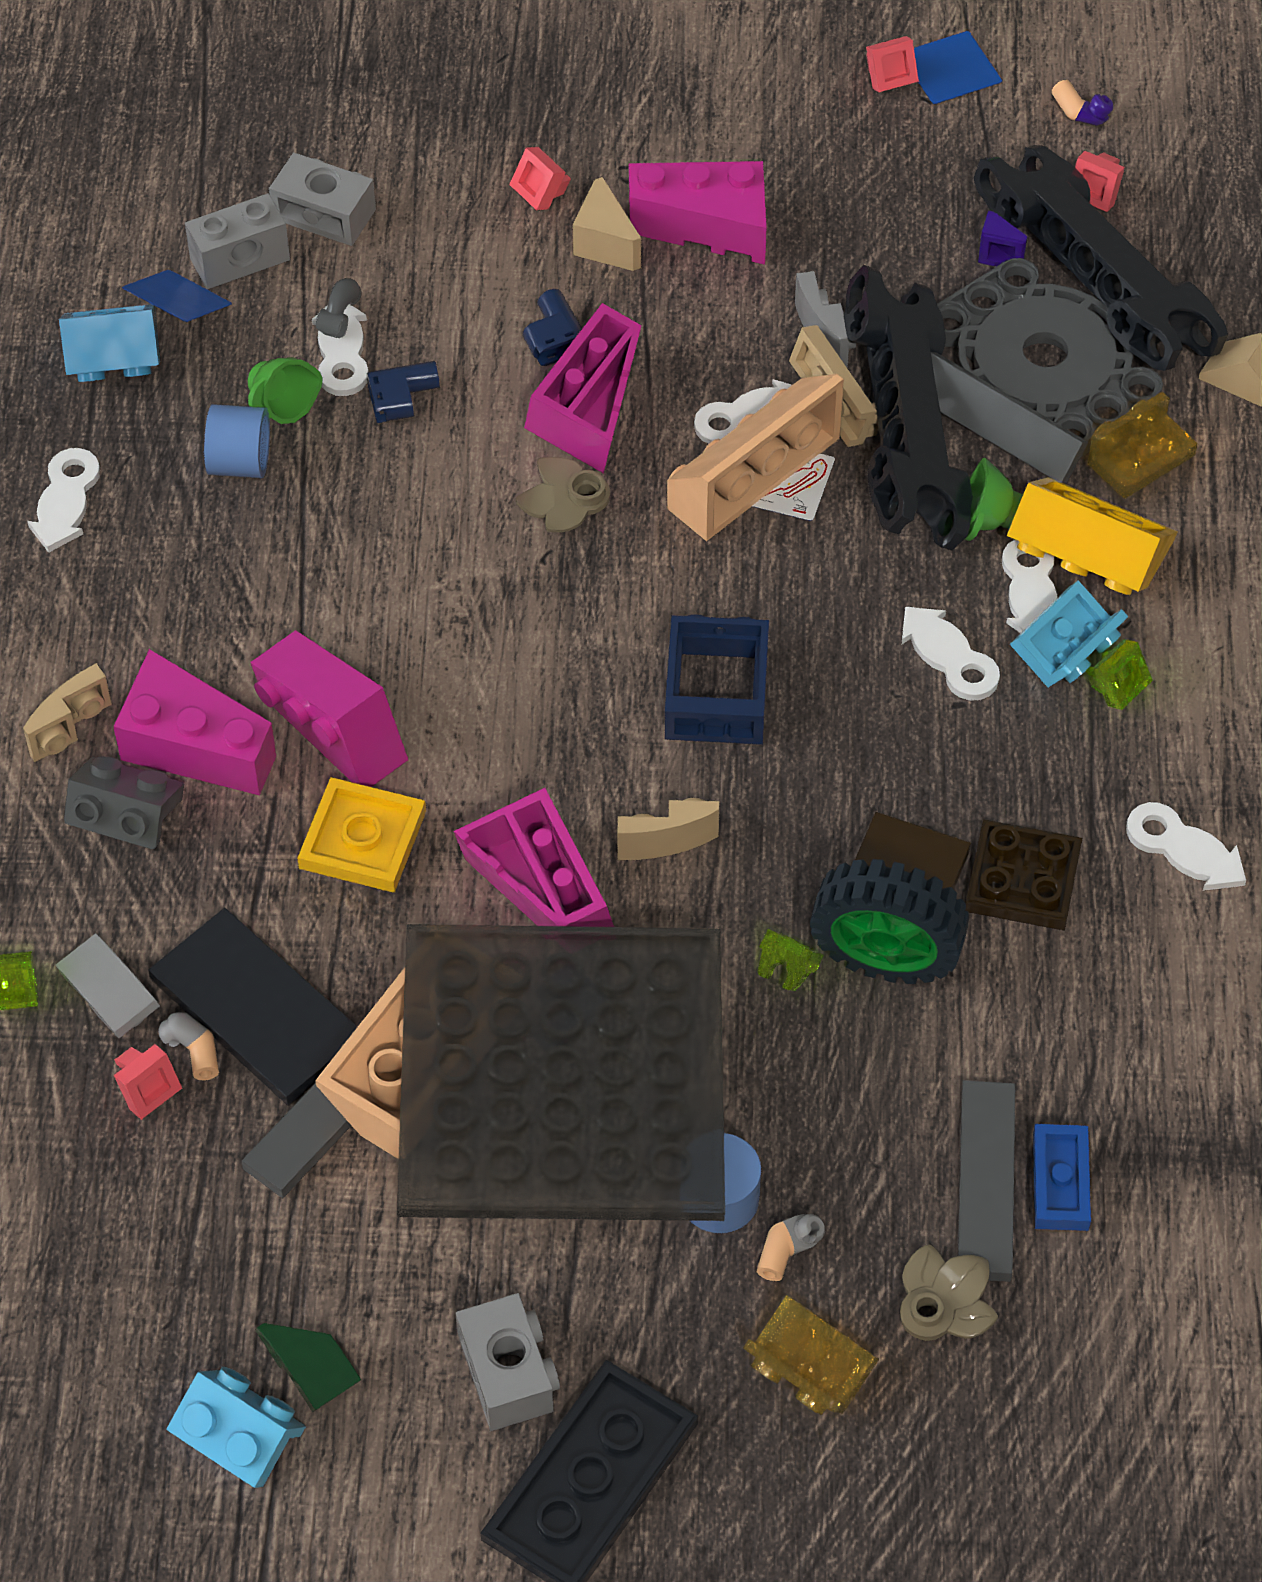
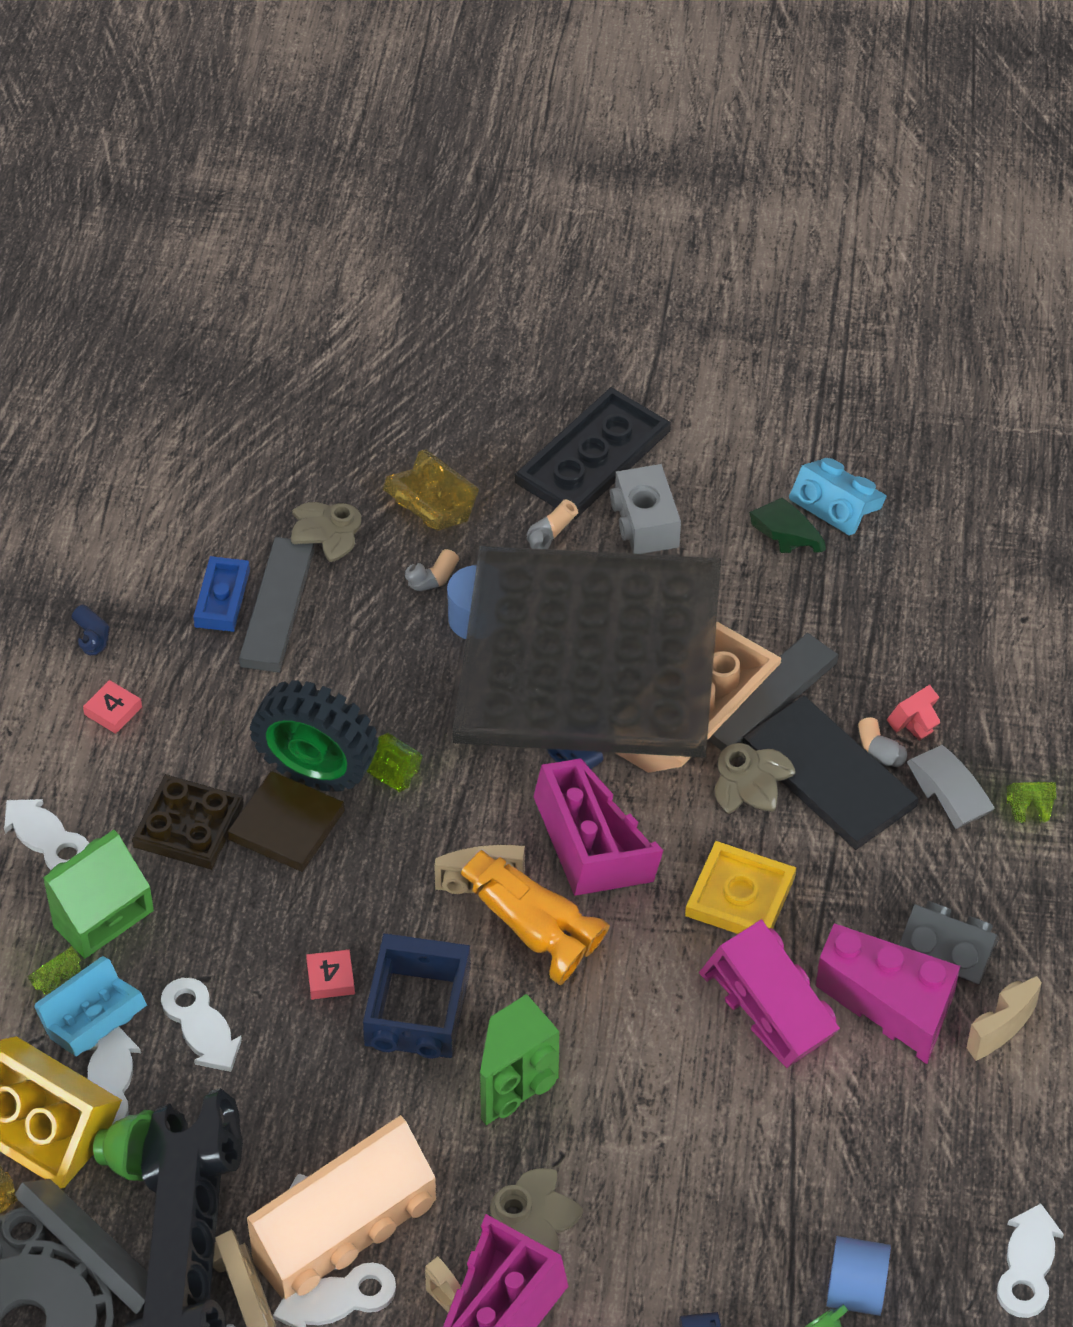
camera: 175 degrees left, 5 degrees down
(350, 978) = (752, 781): none -> dark tan plate
(592, 762) = (536, 914): none -> light orange piece
(595, 599) = (517, 1058): none -> bright green slope
(635, 1333) = (549, 527): none -> arm
(645, 414) = (441, 1283): none -> tan tile
(818, 710) = (330, 974): none -> coral tile
(1097, 743) = (97, 894): none -> bright green slope
(1157, 1011) = (112, 706): none -> coral tile
(1210, 1111) = (95, 632): none -> dark blue arm

